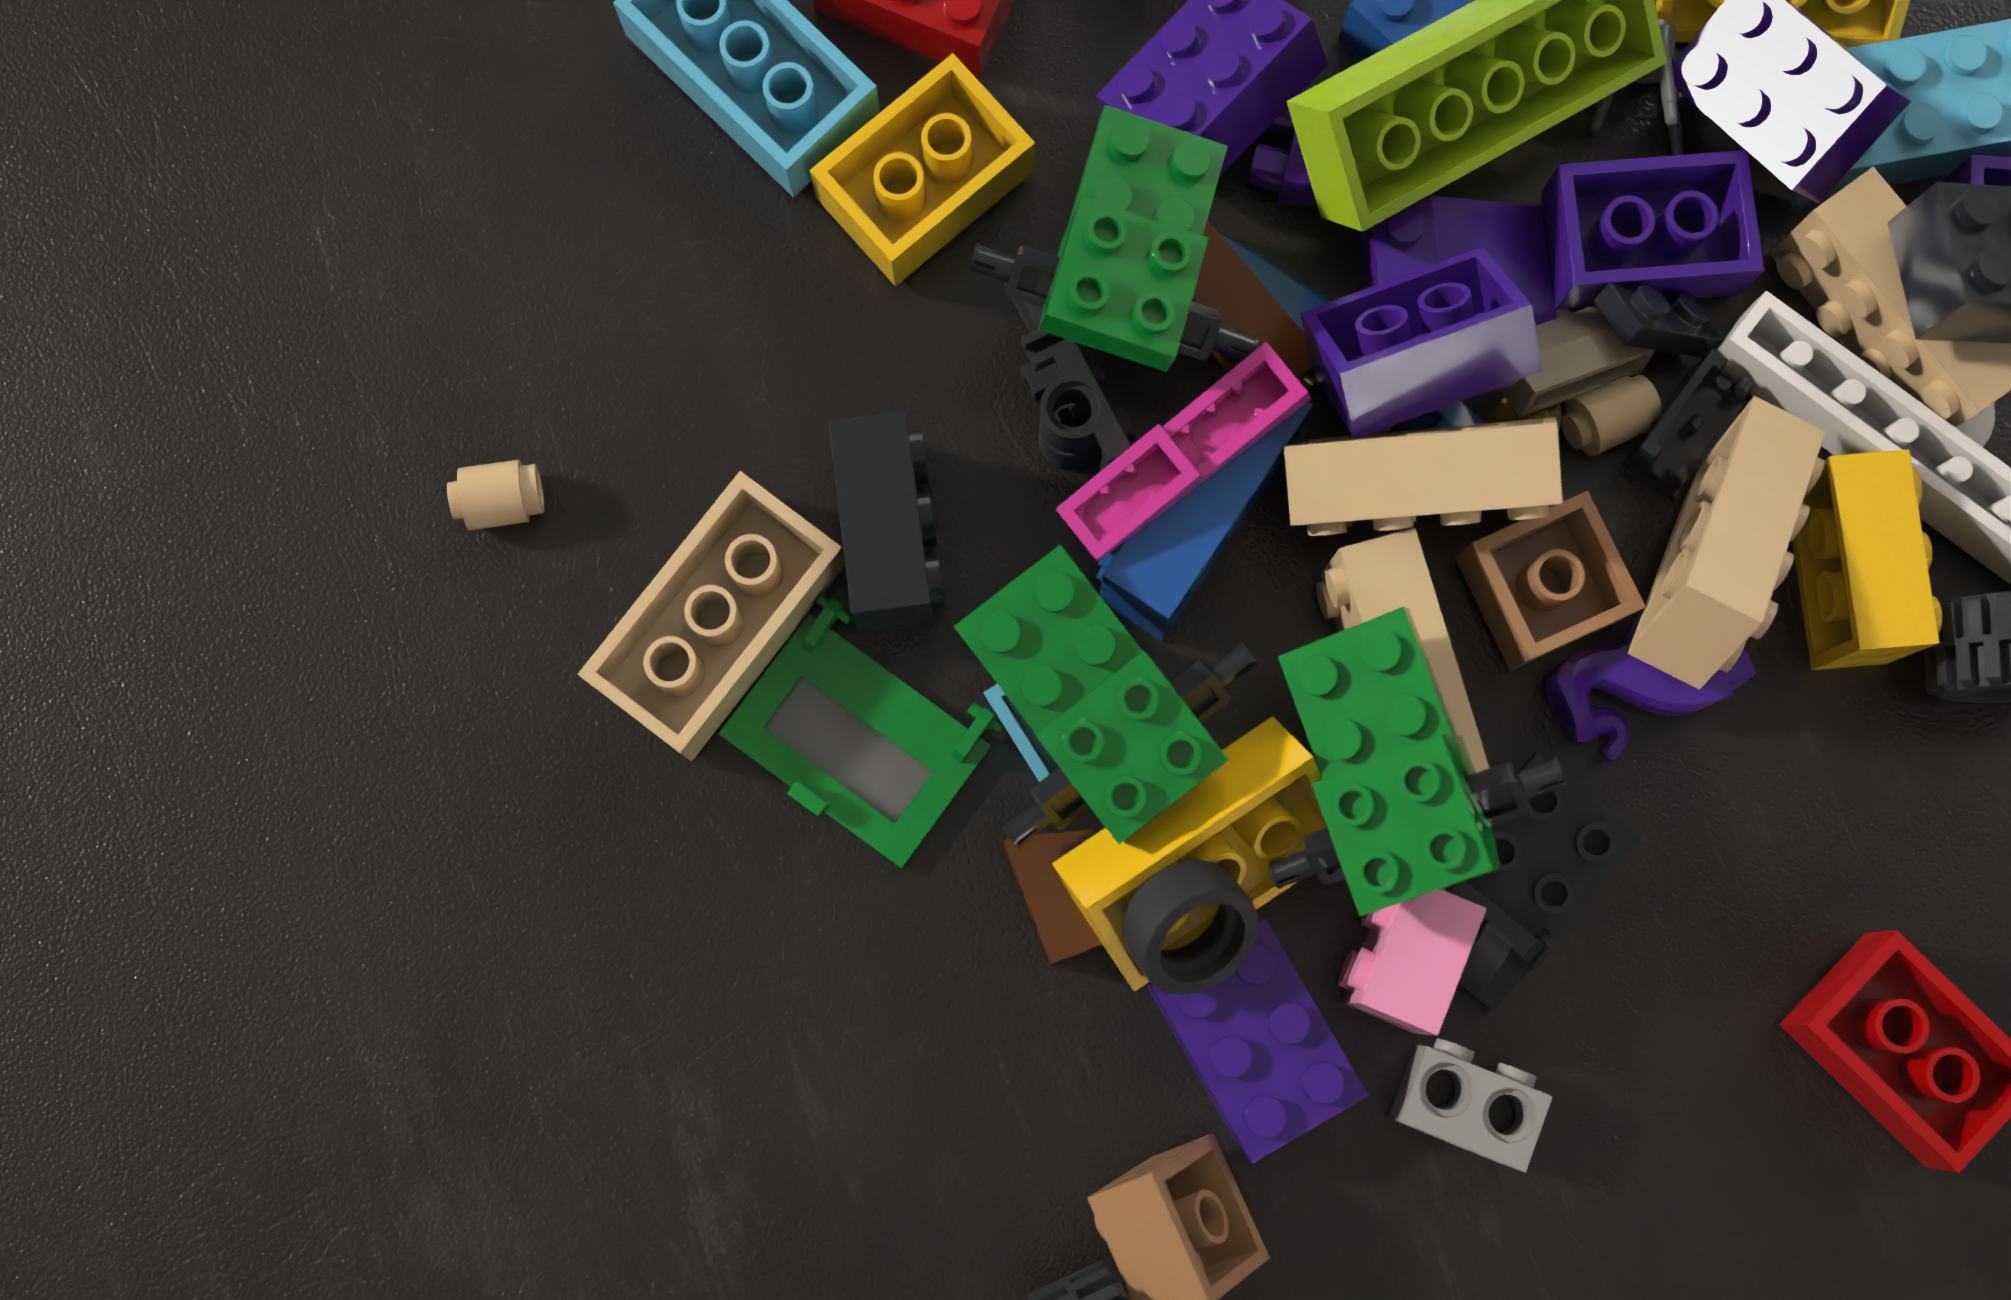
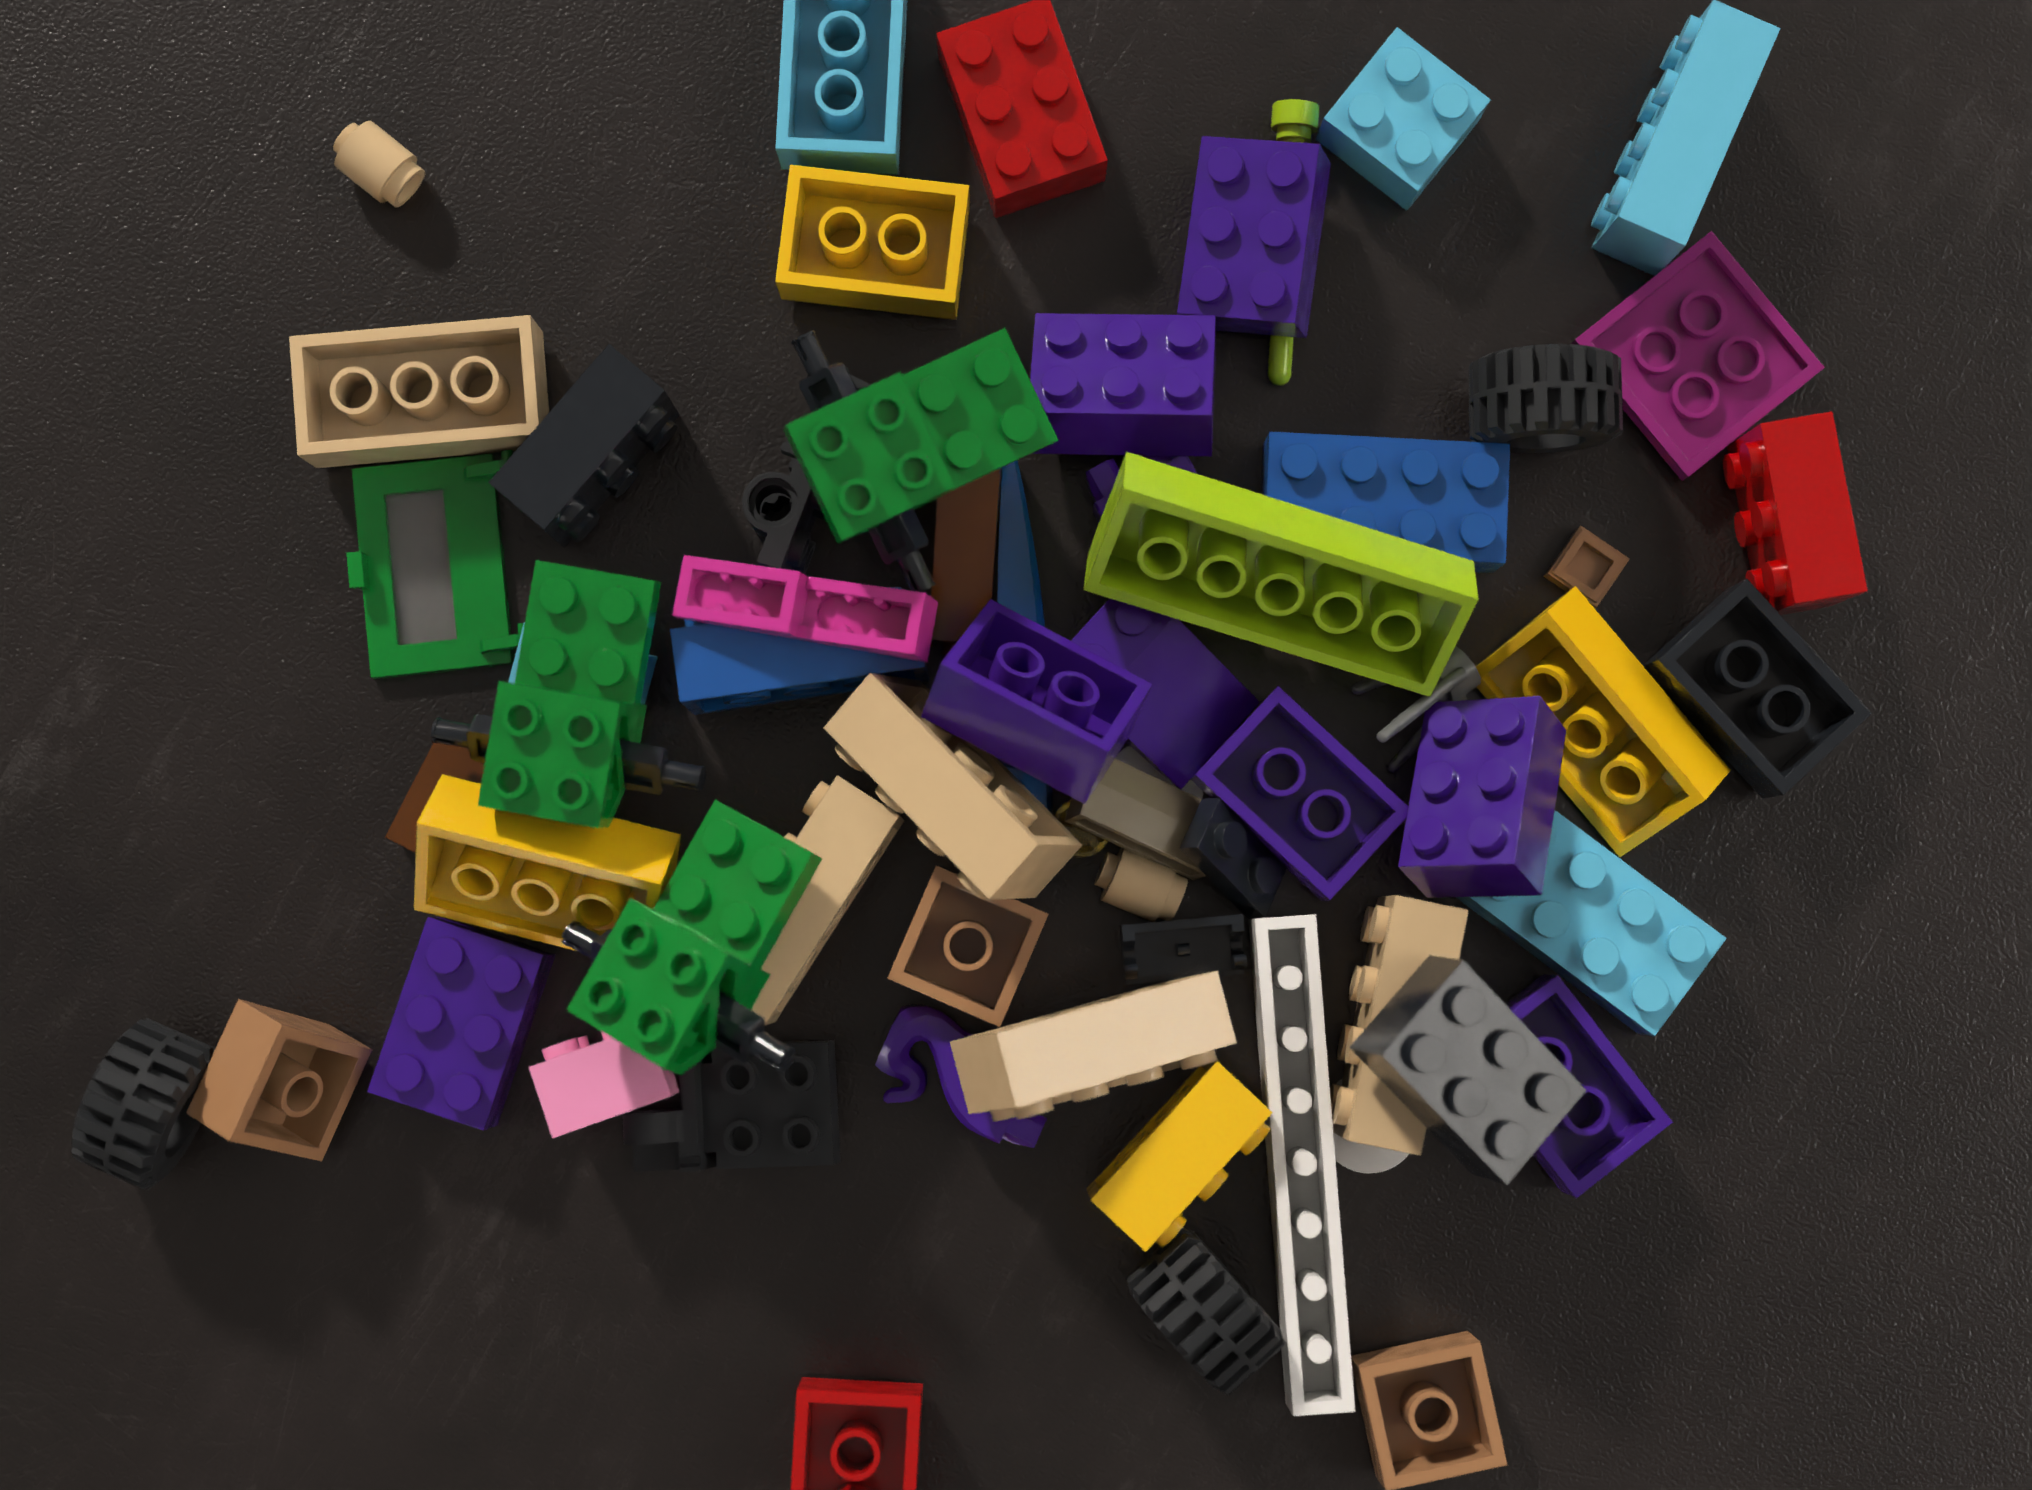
camera: 45 degrees right, 5 degrees up
(1167, 899) = (484, 875): black tyre -> none
(1465, 1117) = (532, 1213): light grey brick -> none

